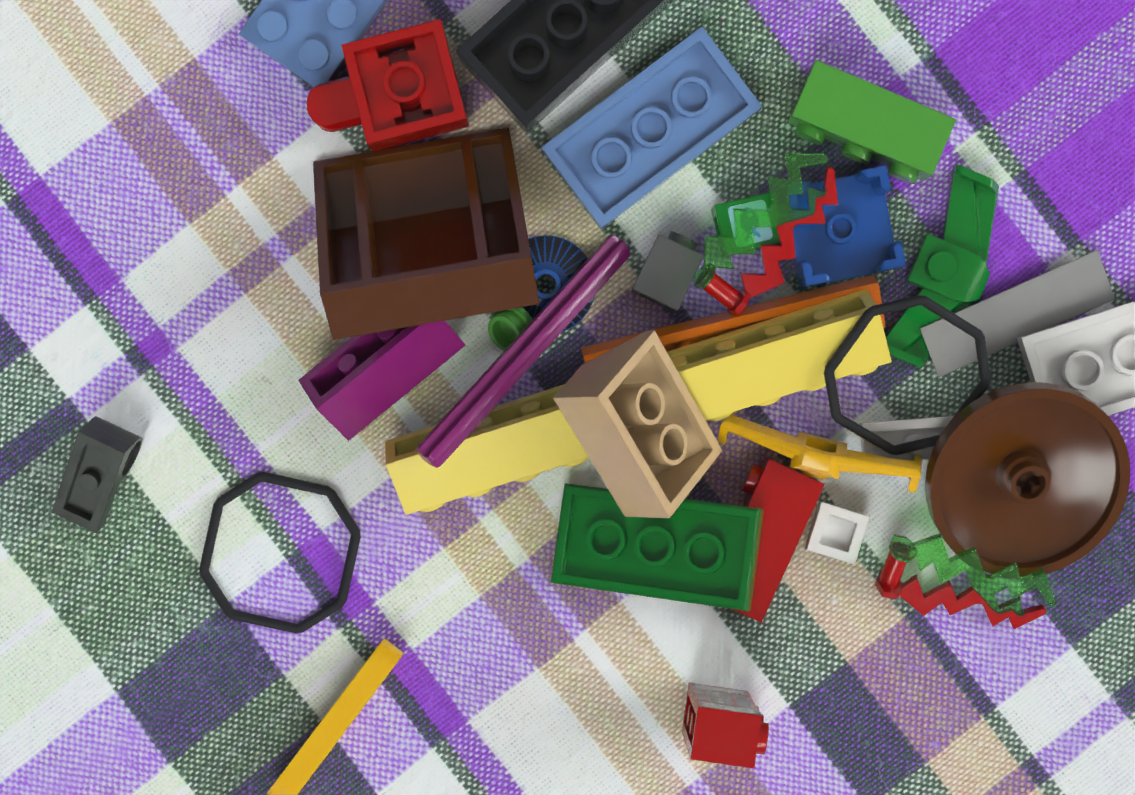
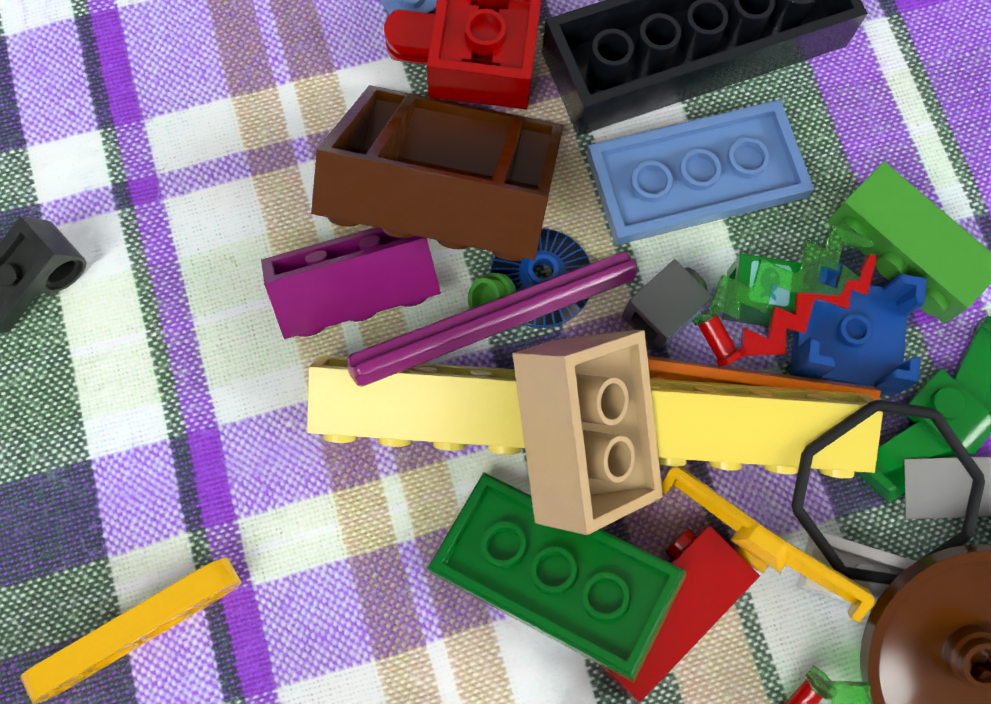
camera: 10 degrees right, 15 degrees down
(262, 620) = (106, 385): black piece -> none
(837, 532) = (751, 638): white plate -> none

